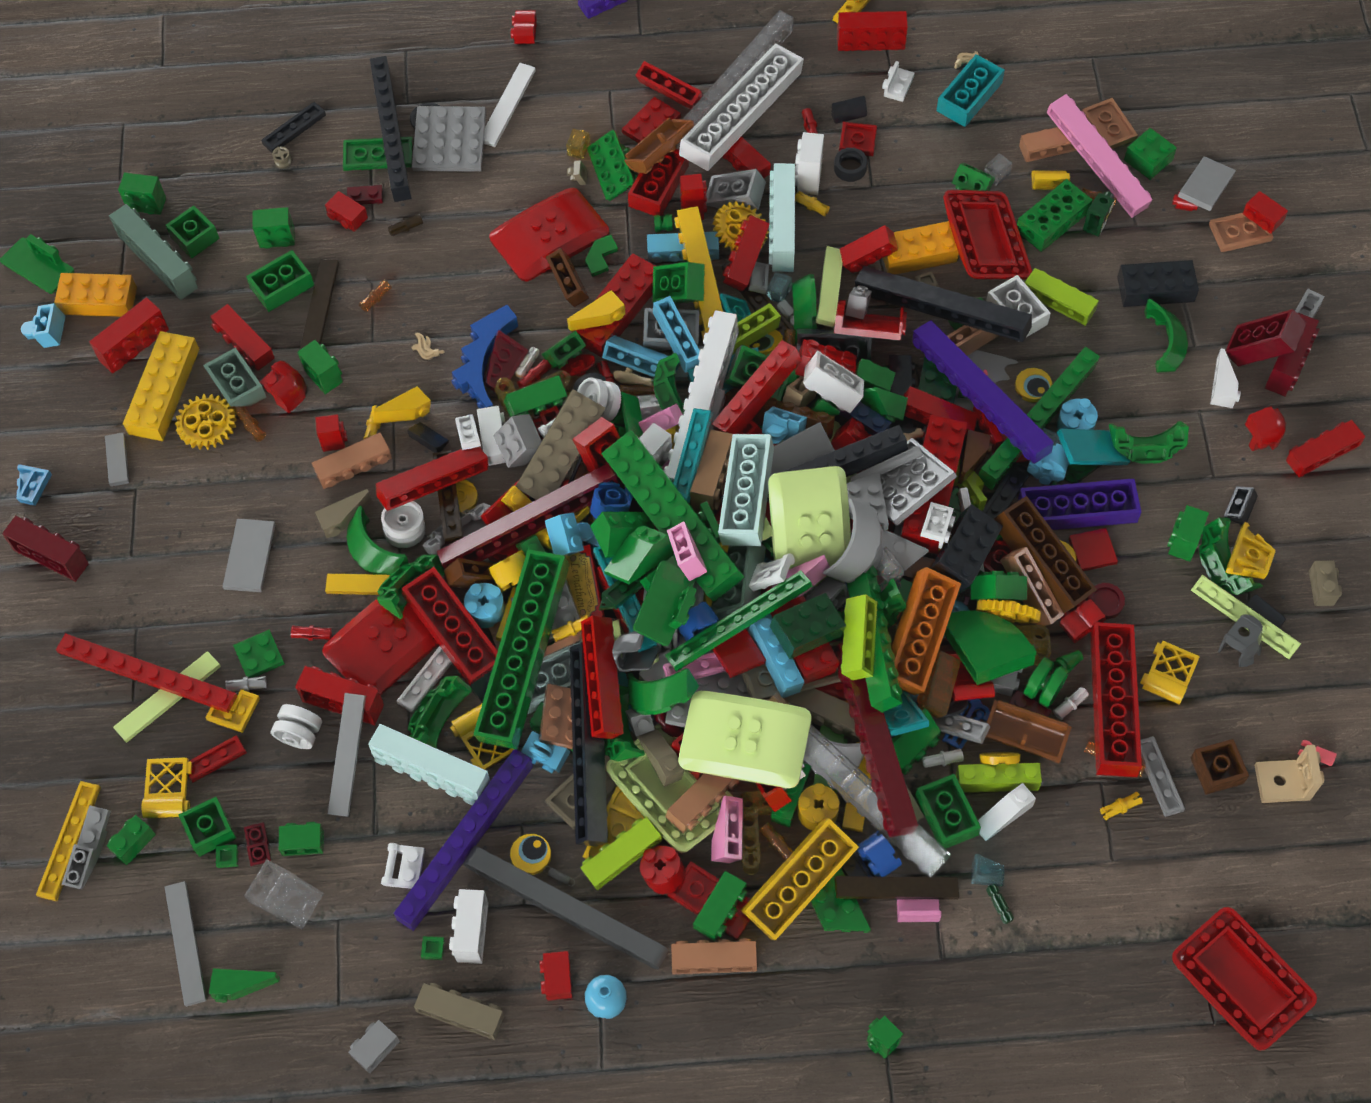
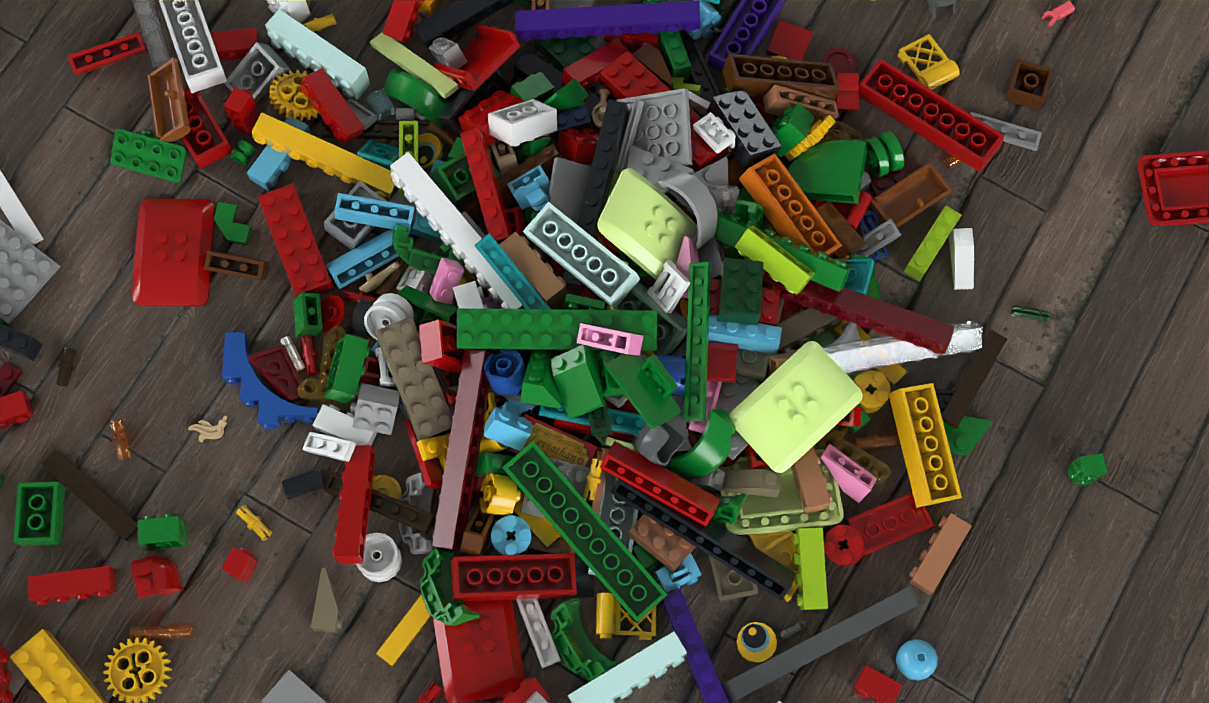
camera: 60 degrees left, 10 degrees up
(235, 379) = (116, 617): sand green slope -> none
(352, 460) = (279, 564): nougat brick -> none
(366, 552) = (379, 607): green windscreen -> none
(403, 408) = (262, 483): yellow slope -> none
(578, 143) = (102, 167): clear yellow brick -> none
(578, 173) = (133, 187): dark tan tile -> none
(598, 313) = (302, 259): yellow slope -> none
(648, 119) = (128, 94): red plate -> none
(680, 281) = (322, 179): green brick -> none
(720, 906) = (904, 520): green brick -> none
(879, 855) = (941, 373): blue brick -> none
(918, 910) = (998, 375): bright pink panel -> none
(943, 758) = (888, 271): white axle -> none
(948, 811) = (938, 298): green brick -> none
(986, 871) = (1000, 306): clear light blue slope -> none
(995, 758) = (919, 230): yellow tile -> none
(1069, 660) = (871, 126): green cone -> none
(1070, 703) = (905, 143): white axle -> none
(1121, 805) = (1010, 173): yellow pin -> none
(1300, 777) = (1070, 37): tan bracket -> none

